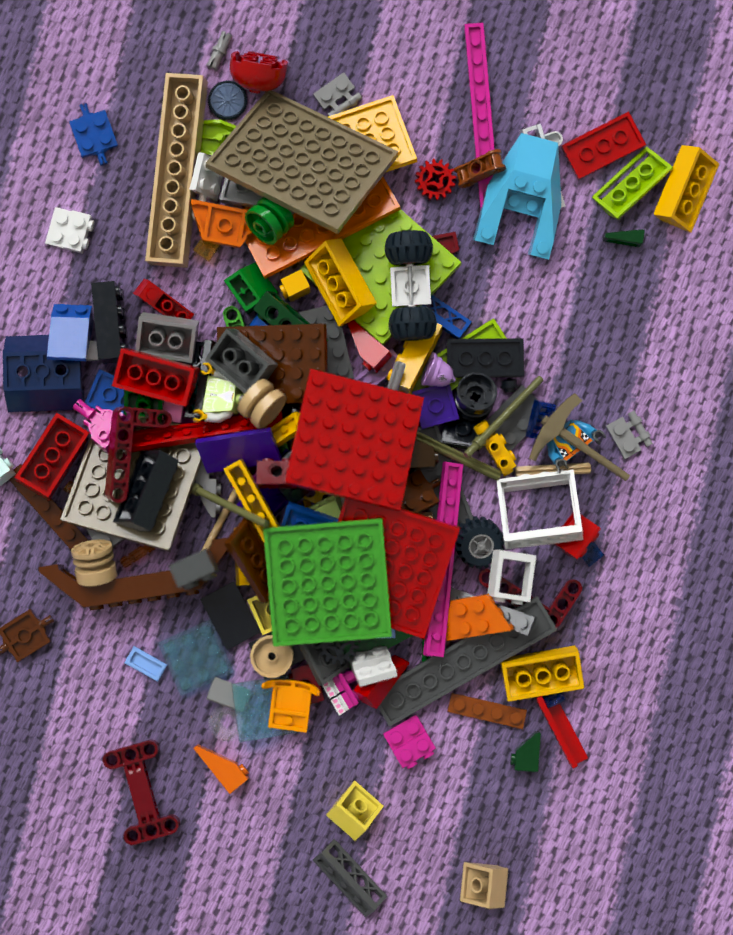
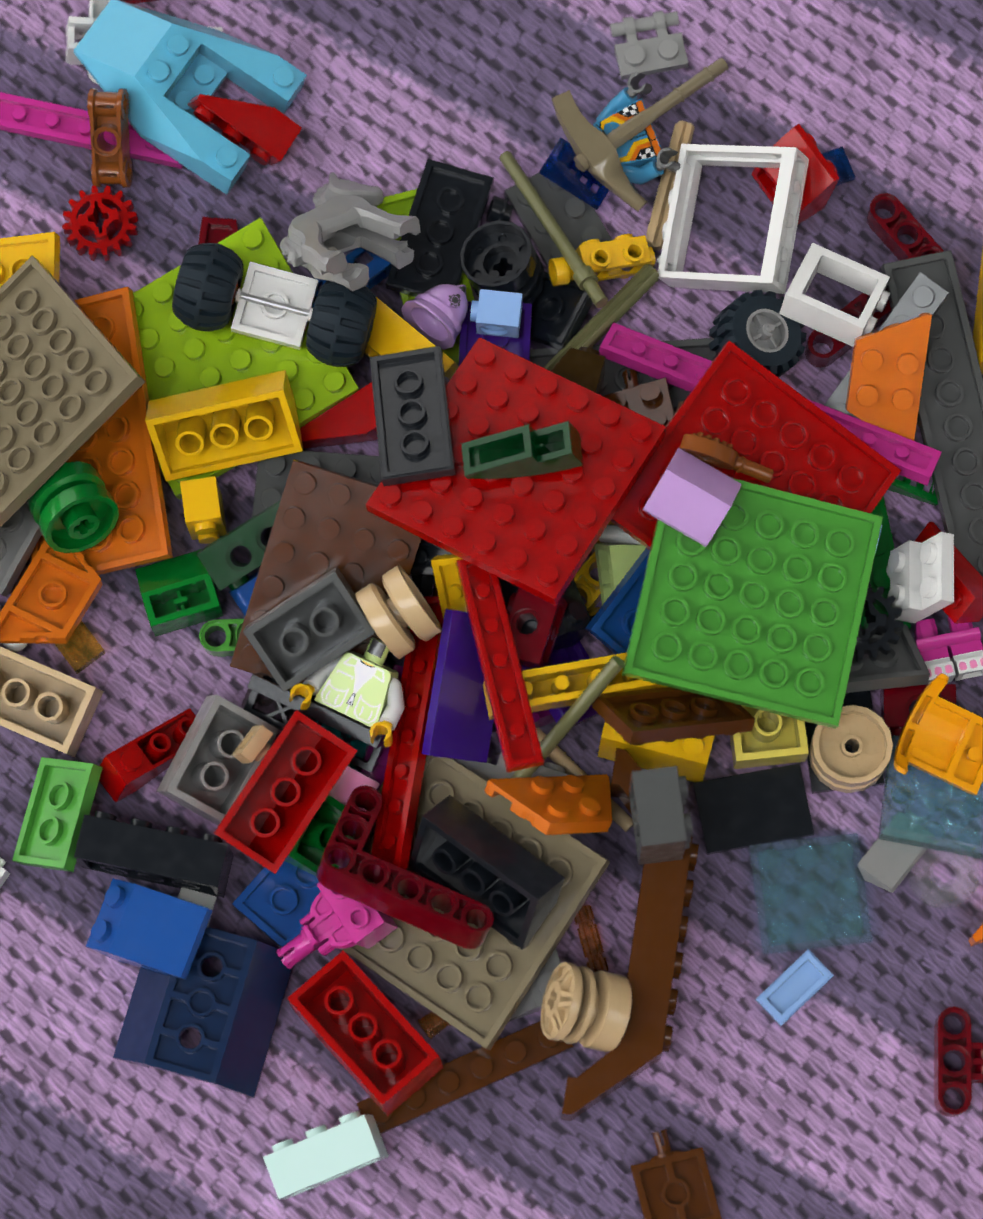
camera: 70 degrees left, 10 degrees down
(116, 266) = (56, 813): none -> bright green plate
(176, 353) = (254, 745): none -> tan plate
(194, 516) = (558, 802): none -> orange wing
(246, 465) = (500, 667): none -> red tile
(359, 440) = (523, 452): none -> dark green slope
(365, 377) = (412, 416): none -> black tile
(366, 535) = (692, 497): none -> lavender slope
(395, 542) = (723, 456): none -> dark orange piece
(445, 402) = (497, 313): none -> light blue brick
(465, 306) = (343, 221): none -> light grey animal
(512, 244) = (254, 126): none -> red slope

